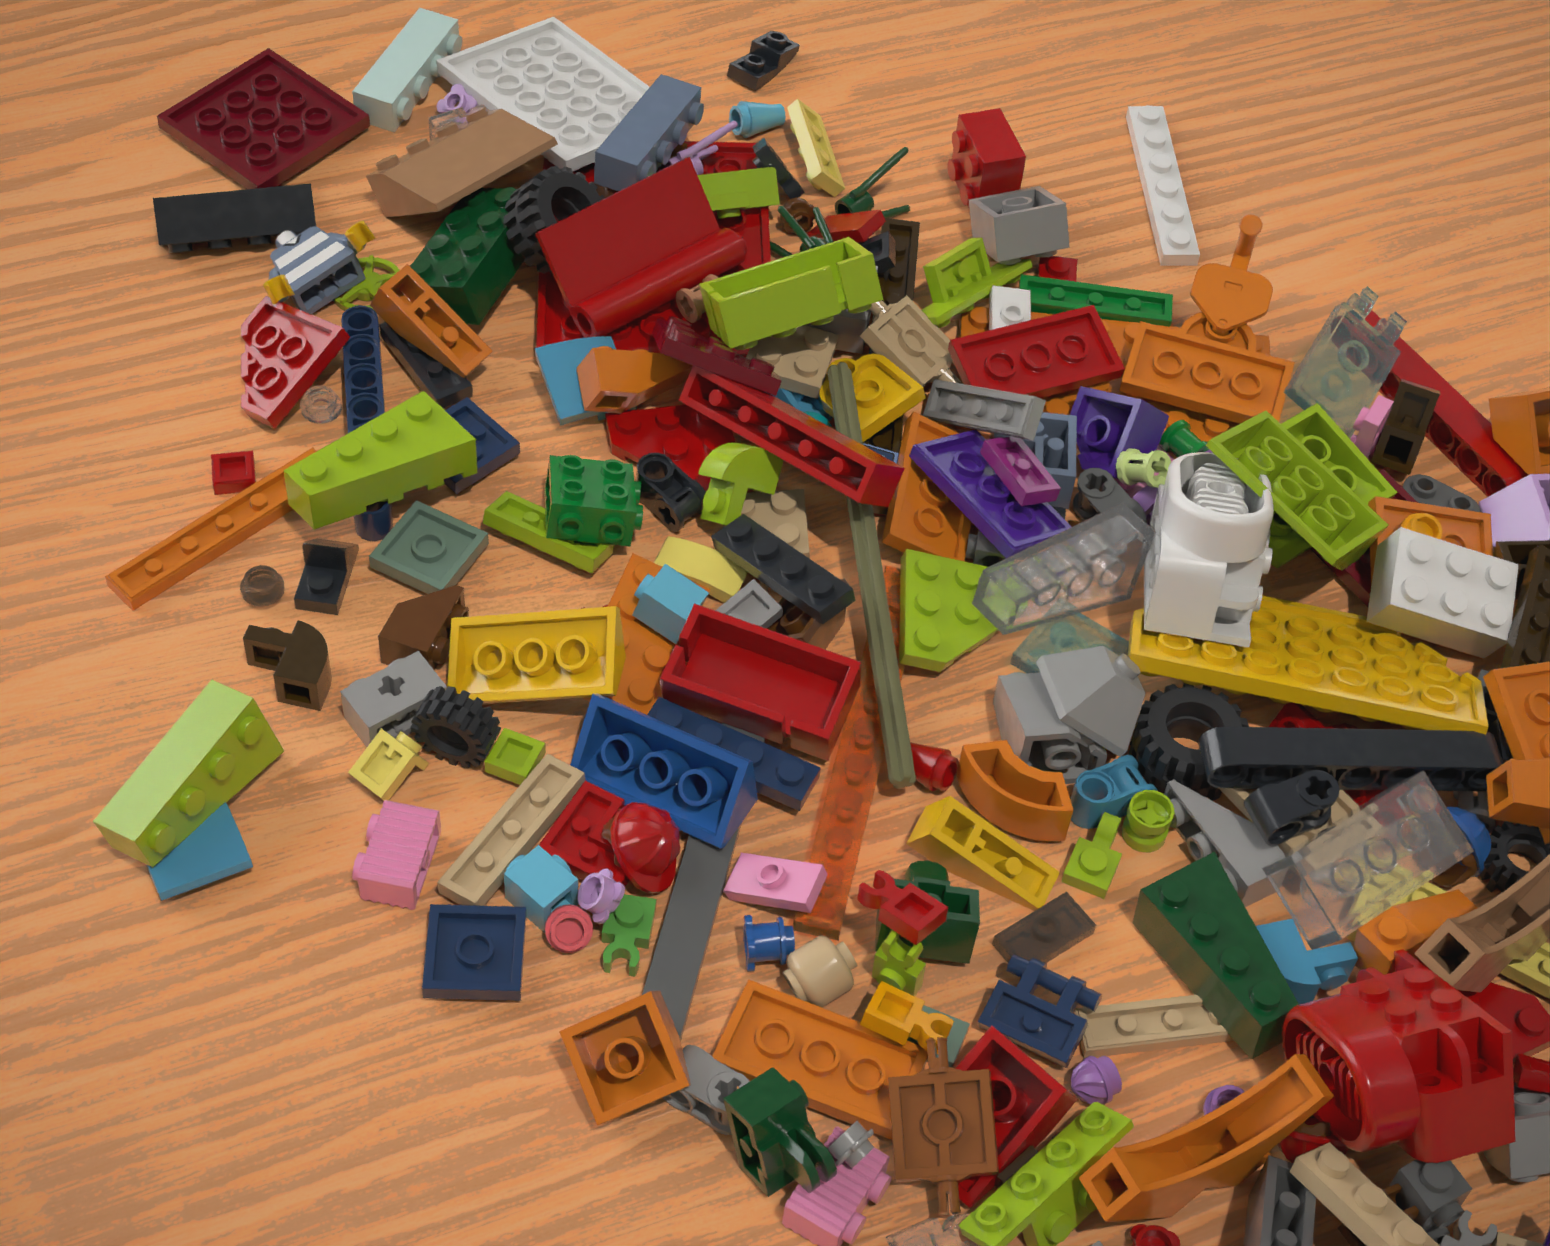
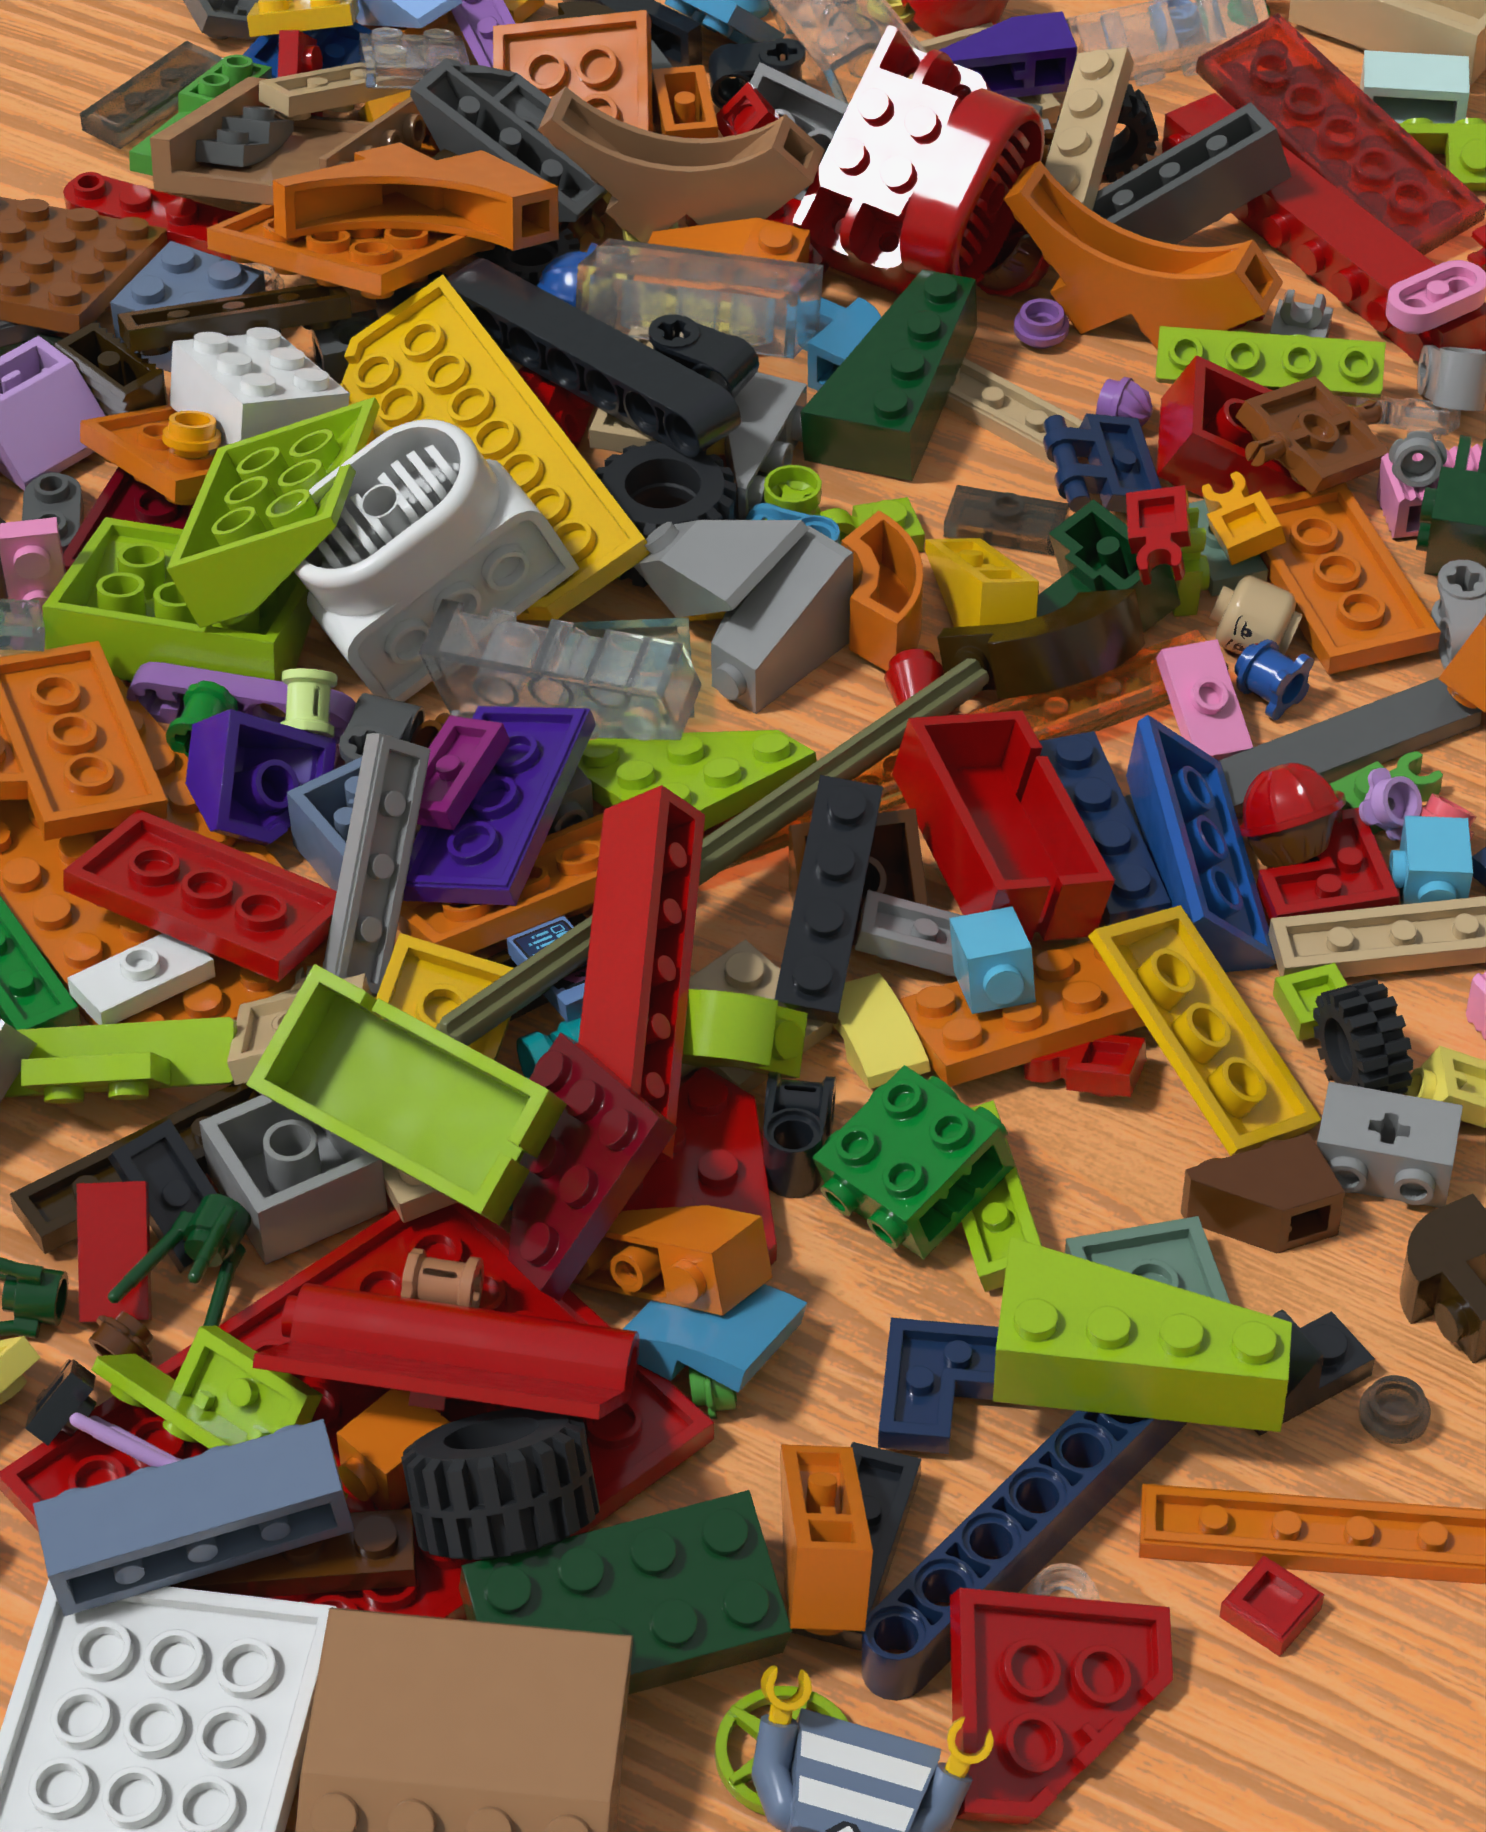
camera: 125 degrees left, 5 degrees down
(875, 827) = (1052, 650): none -> dark brown arch

